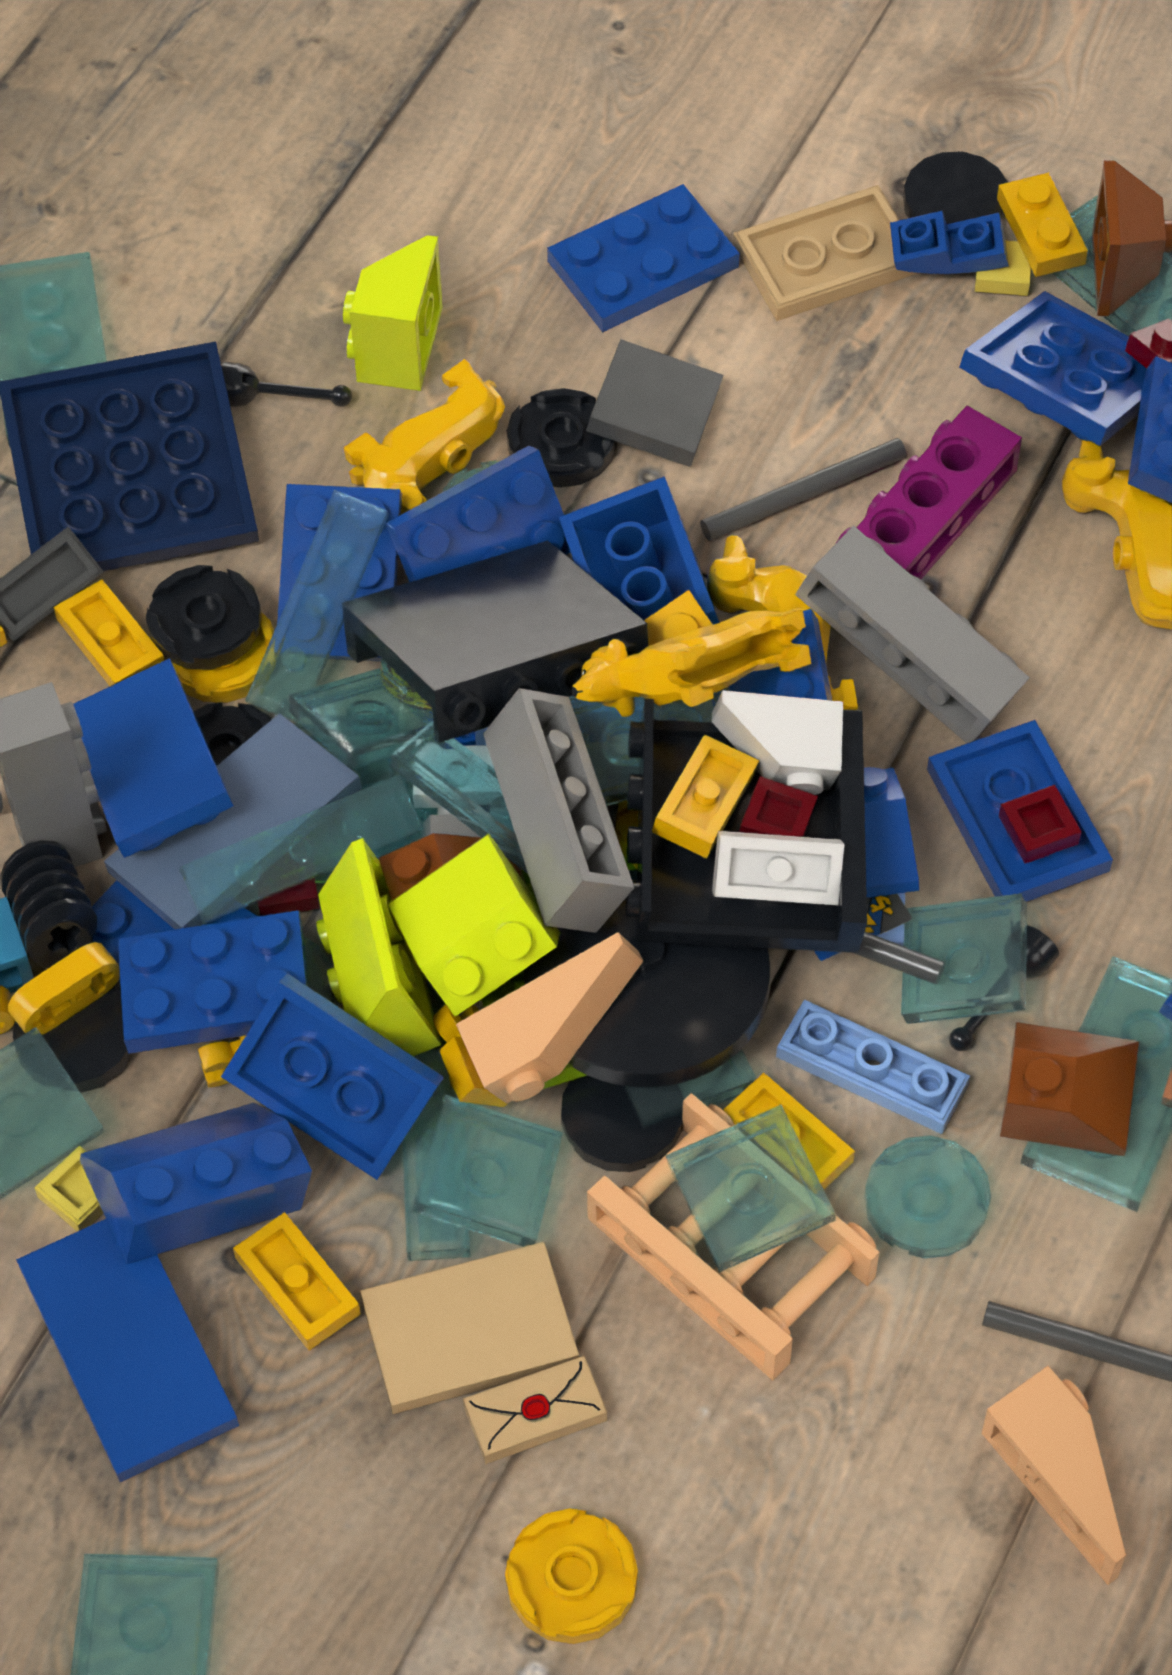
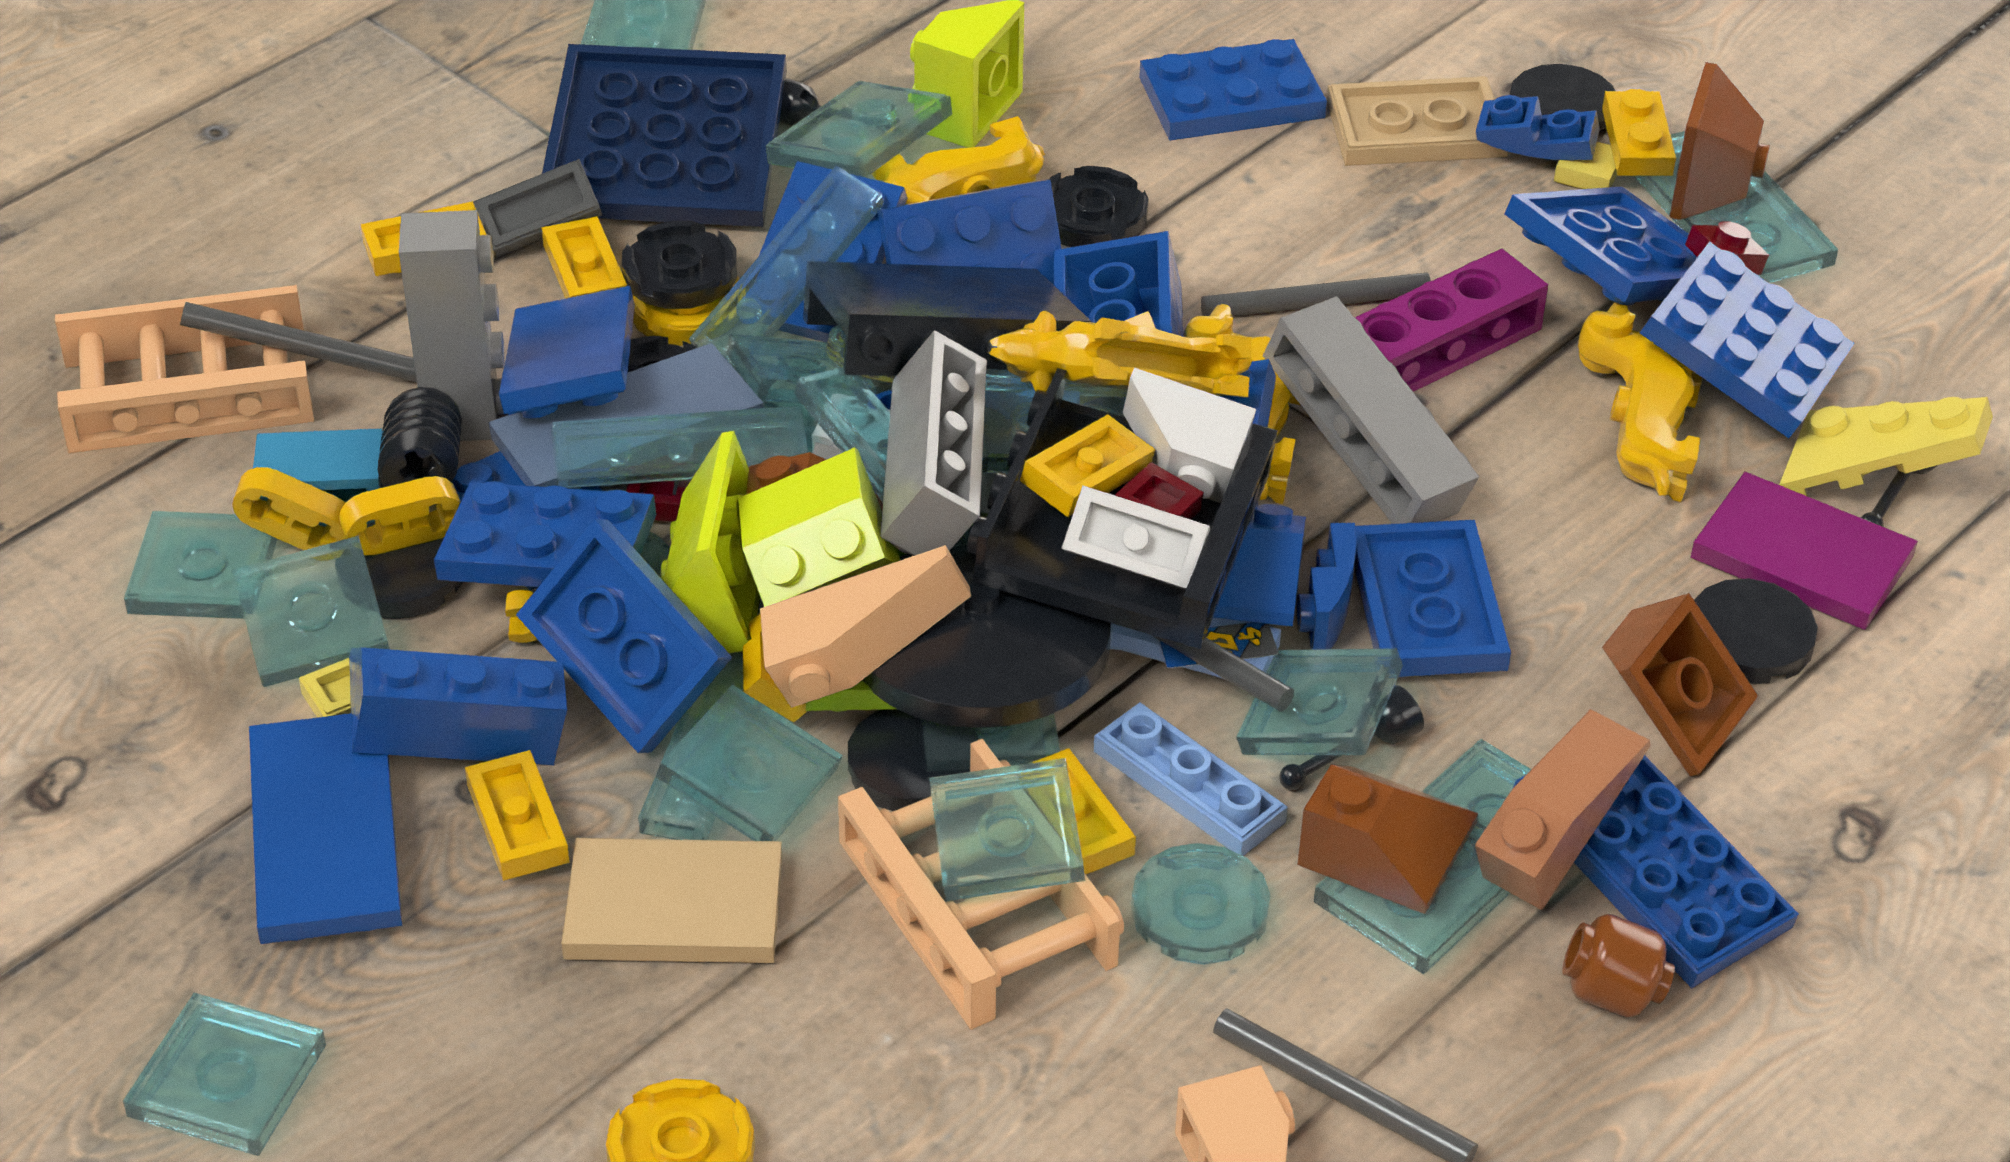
camera: 15 degrees right, 15 degrees down
(319, 414) = (860, 128): none -> clear light blue tile
(535, 1409) = (708, 987): tan tile -> none
(655, 403) = (1193, 195): dark grey tile -> none
(933, 829) = (1329, 591): none -> blue slope
(1039, 824) = (1441, 597): dark red plate -> none

